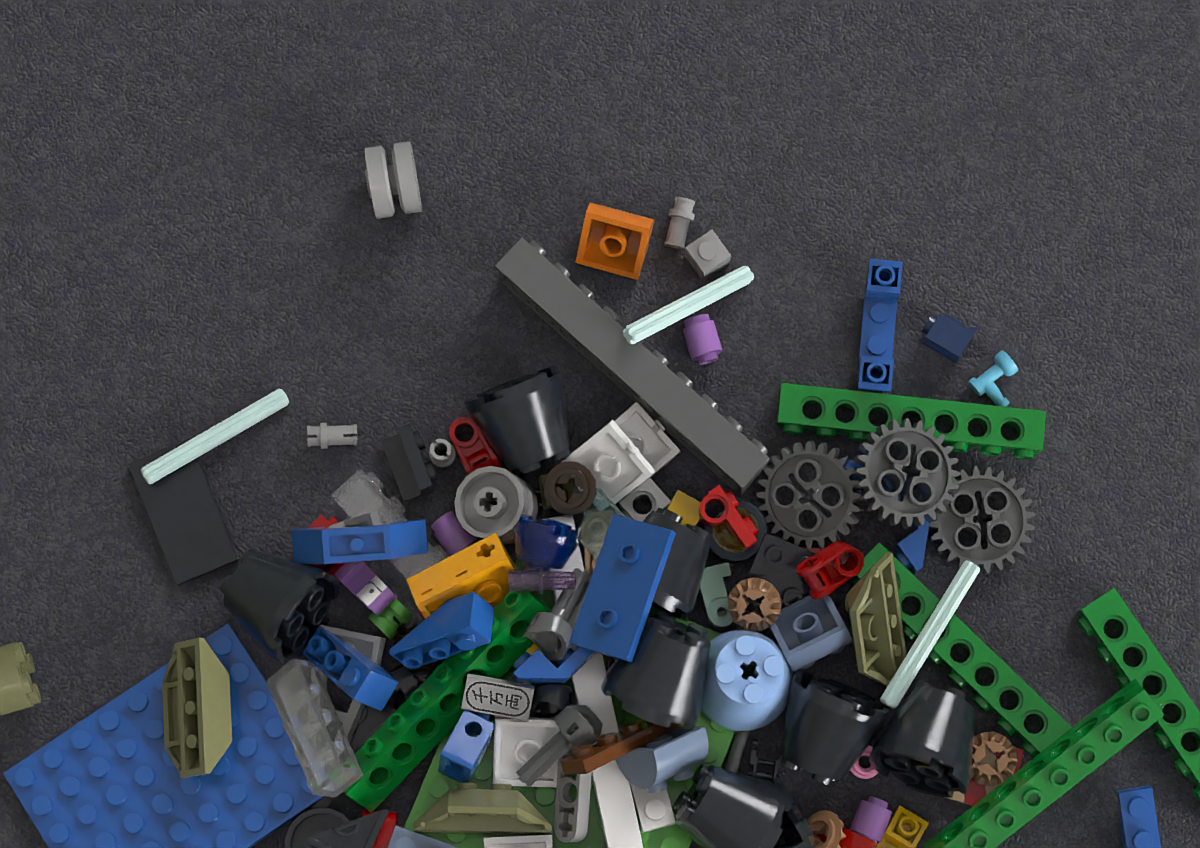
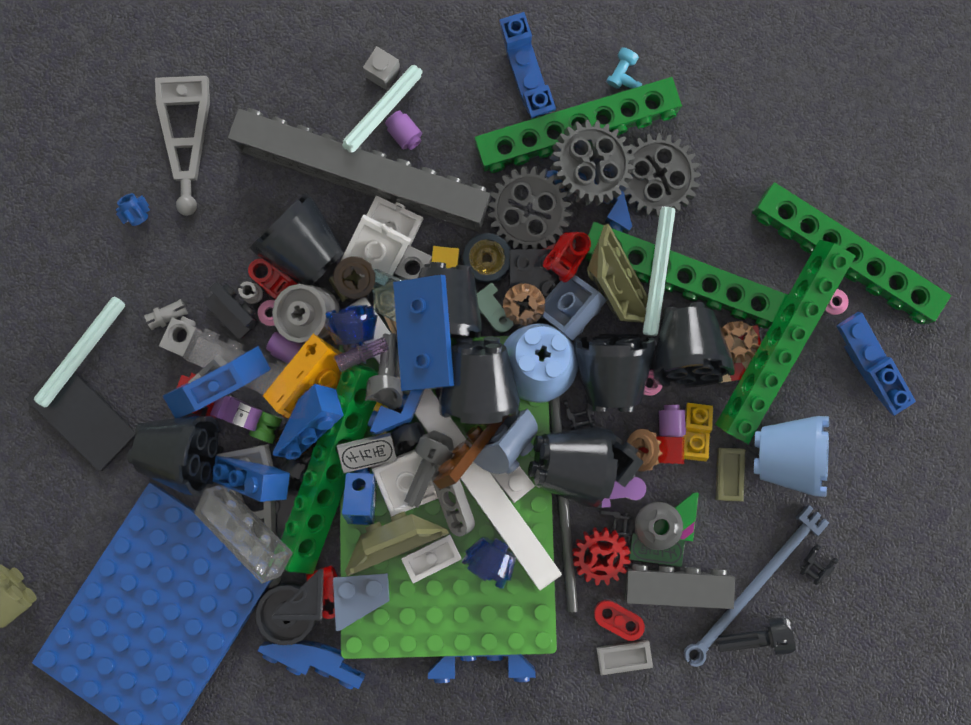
camera: 30 degrees left, 5 degrees up
(196, 708) = (150, 556): olive wedge -> none
(323, 472) = (170, 340): none -> light grey brick
(347, 297) = (132, 209): none -> blue gear
(392, 179) = (124, 110): light grey wheel -> none
(443, 482) = (262, 312): none -> bright pink plate
(459, 182) = (183, 91): none -> light grey plate
(614, 240) = (309, 85): orange brick -> none
(681, 216) = (351, 49): light grey pin -> none
(742, 529) = (491, 253): red plate -> none
(947, 336) = (578, 54): dark blue window -> none
(1119, 765) = (843, 299): none -> bright pink plate

